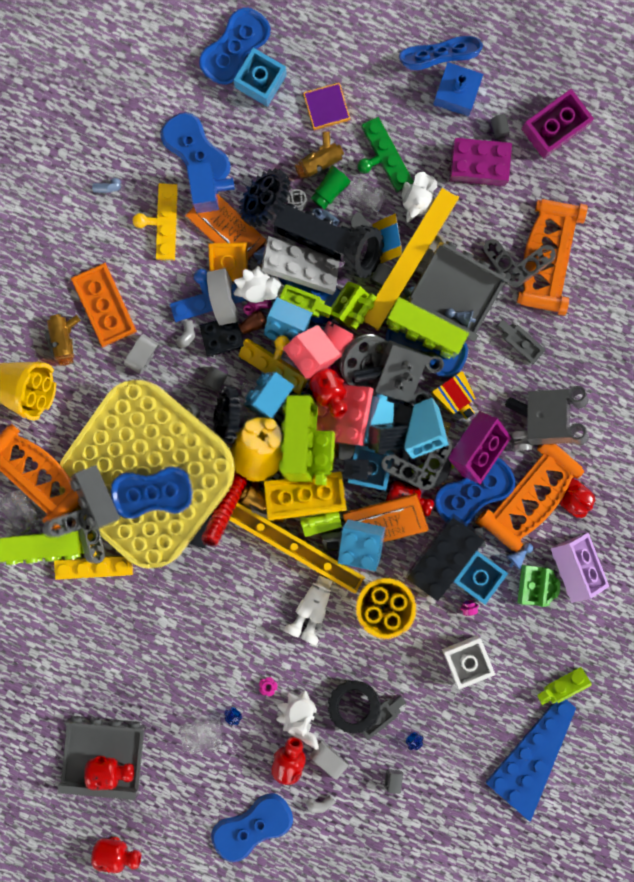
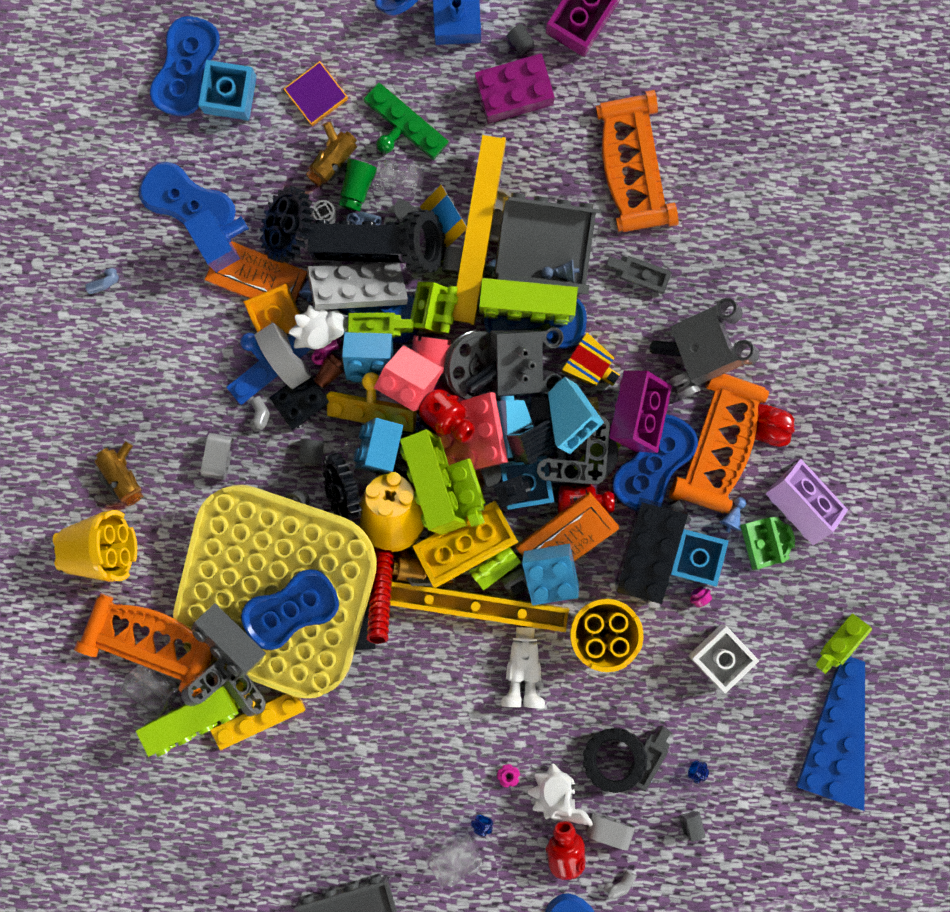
camera: 15 degrees left, 0 degrees up
(103, 305) = (152, 417): orange tile -> none
(165, 221) = (184, 295): yellow plate -> none
(419, 195) = (460, 153): white head -> none
(519, 268) = (606, 191): dark grey beam -> none

